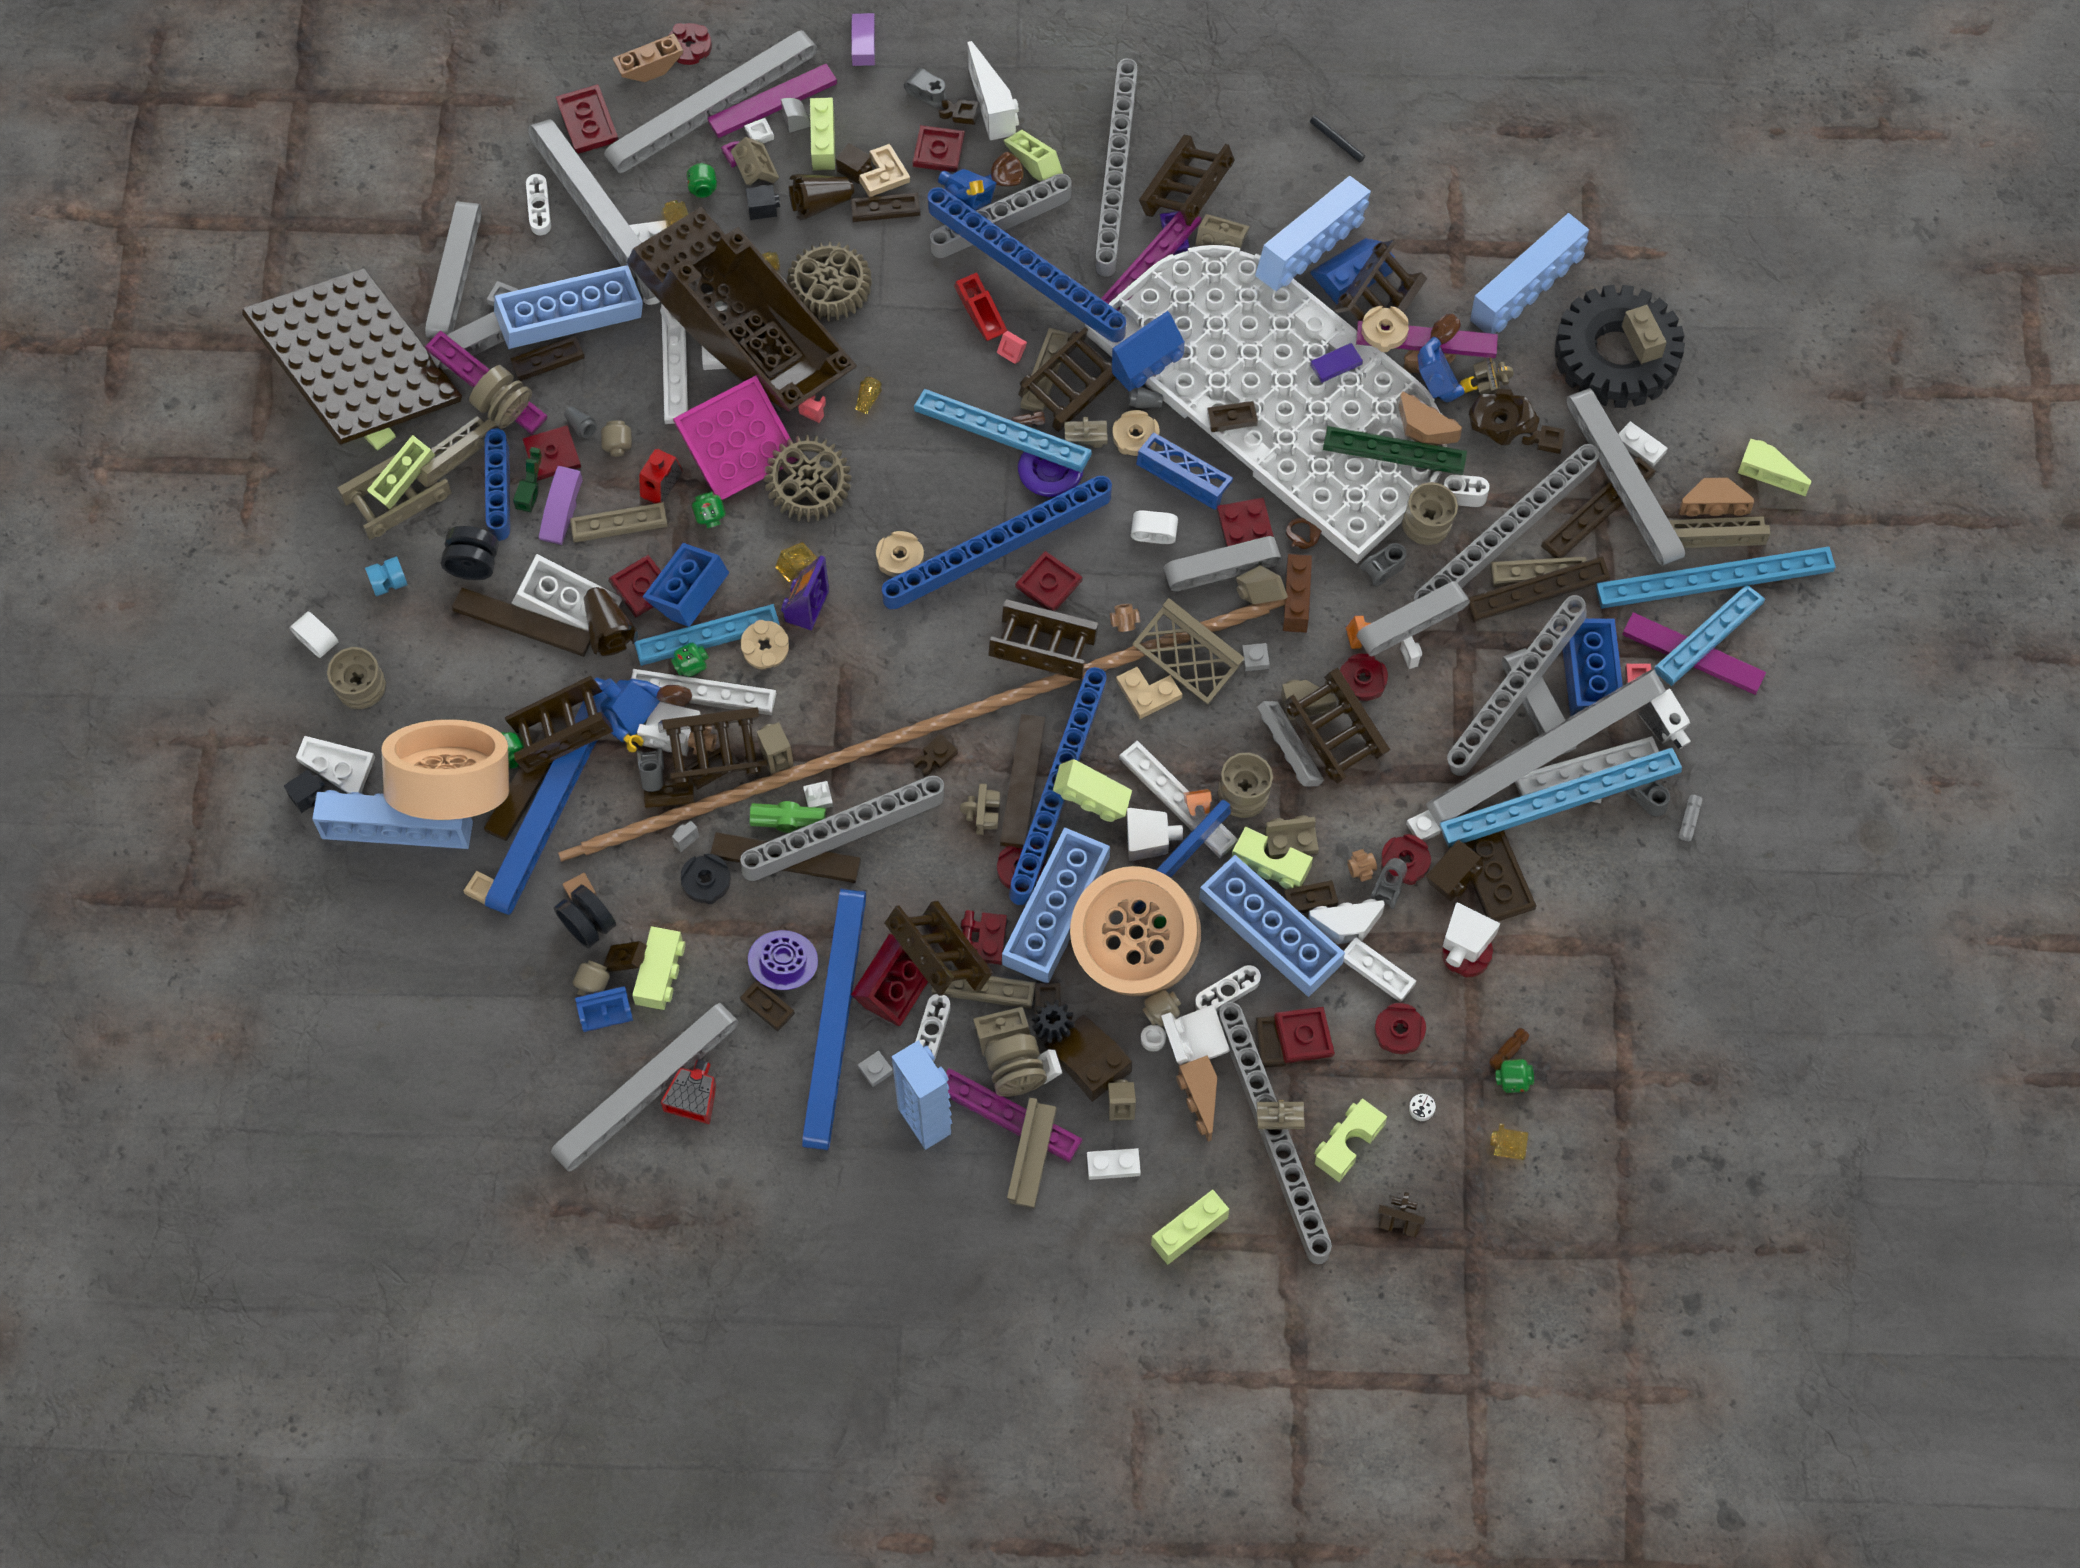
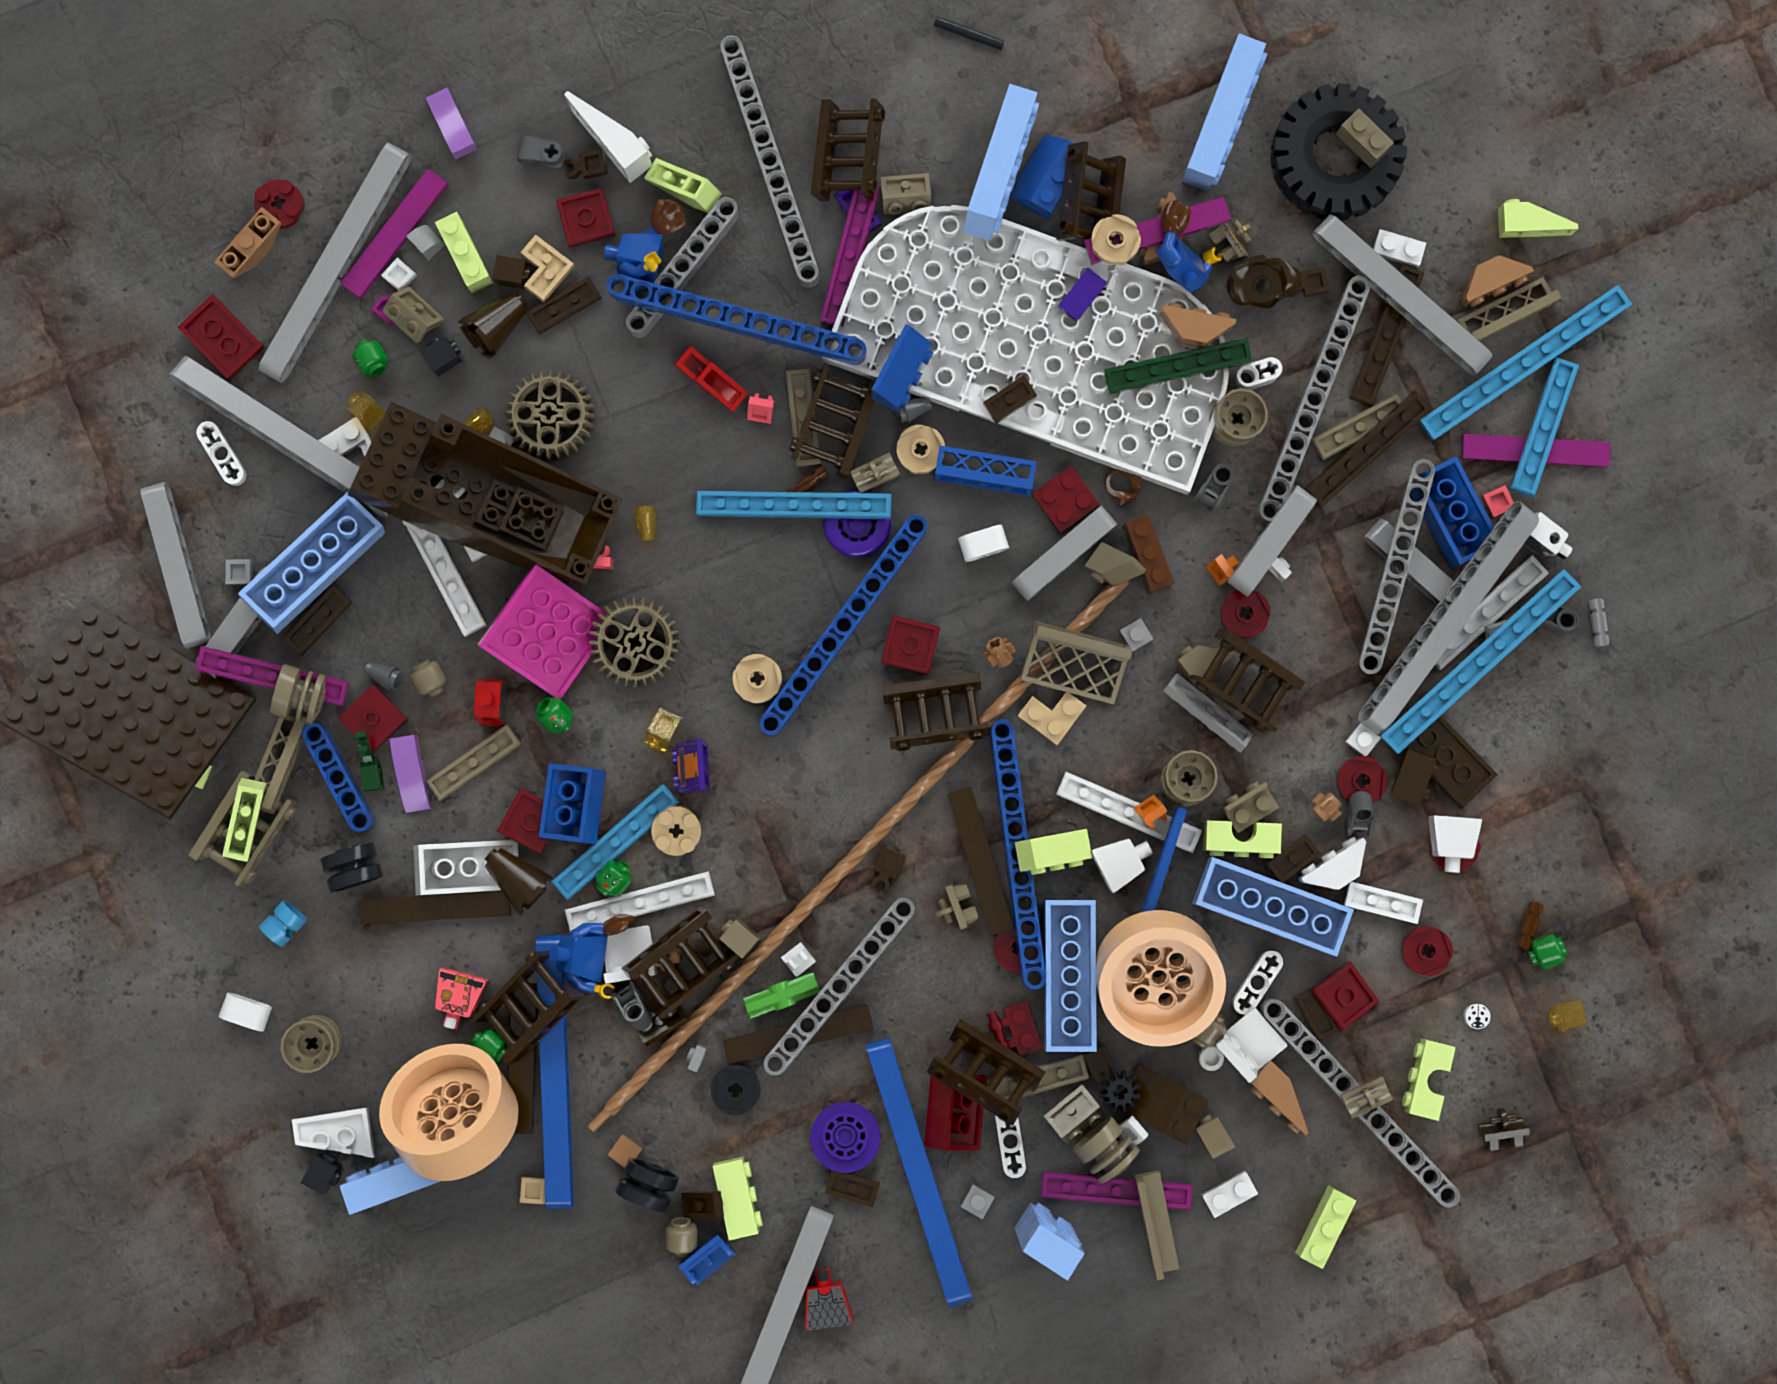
camera: 25 degrees left, 20 degrees up
(503, 696) = (458, 995): none -> coral torso

